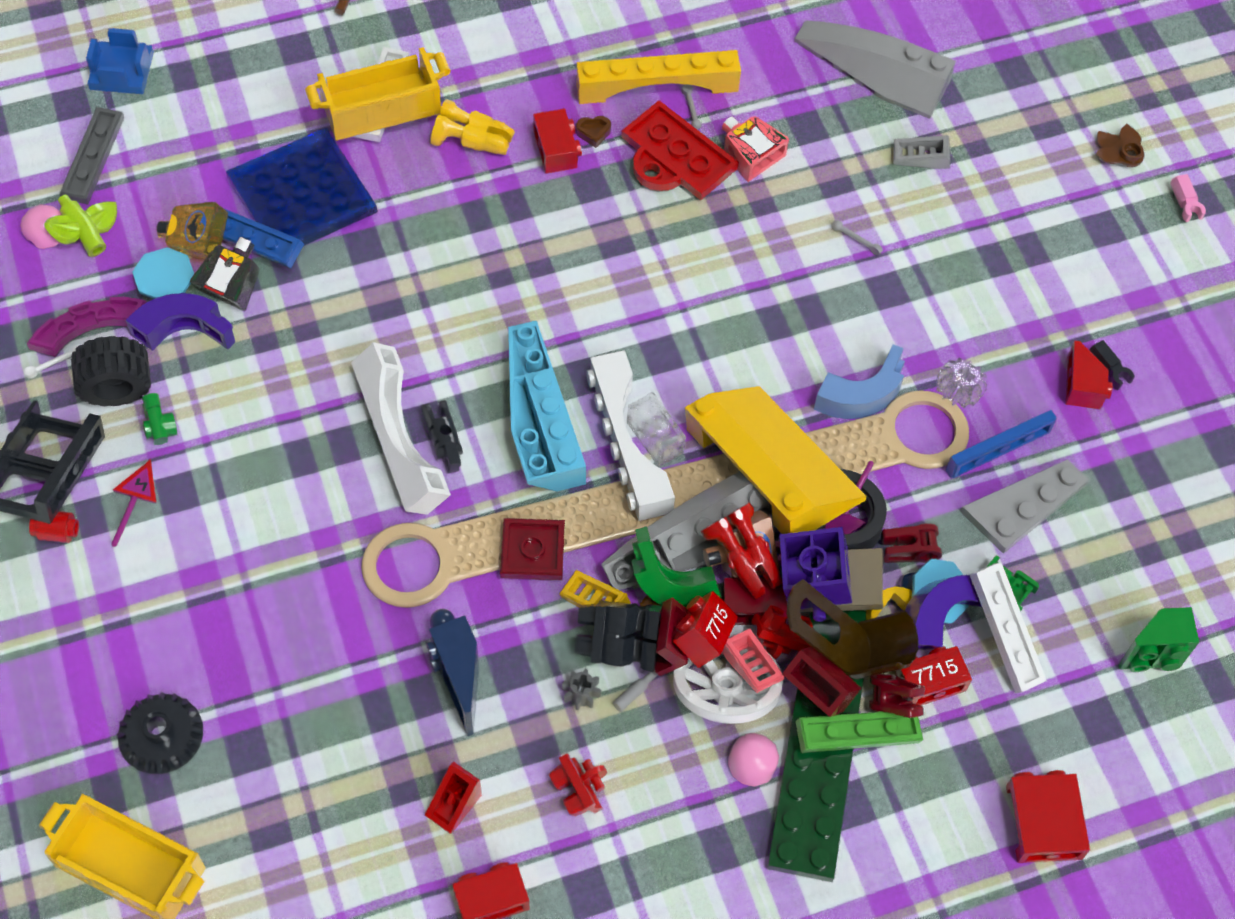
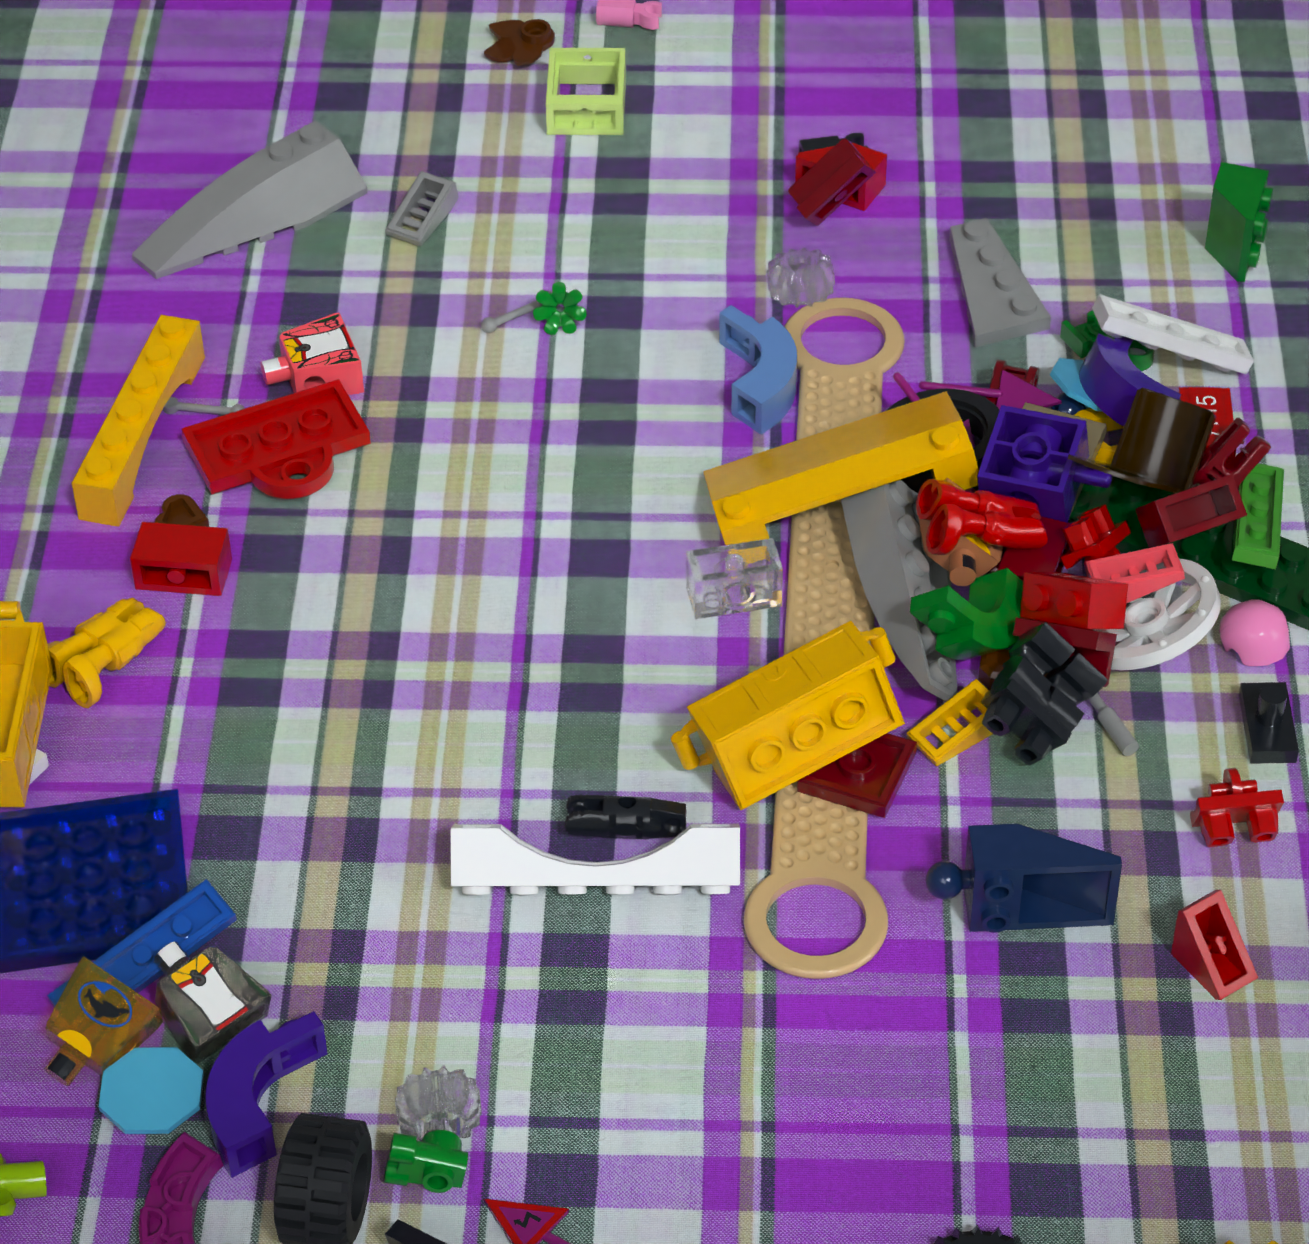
camera: 65 degrees left, 15 degrees down
(188, 410) = (438, 1103): none -> clear gear
(536, 495) = (794, 714): none -> yellow container
(539, 415) = (619, 685): medium azure wedge -> none
(581, 698) = (1096, 770): dark grey gear -> none
(647, 484) = (638, 609): white arch -> none
(675, 787) = (1268, 723): none -> black tile
(865, 256) = (558, 315): none -> green plant
(900, 545) = (1012, 392): none -> magenta piece
(1001, 444) = (904, 274): blue tile -> none
(1059, 369) = (830, 182): none -> dark red panel
(1062, 210) = (586, 112): none -> yellowish green window

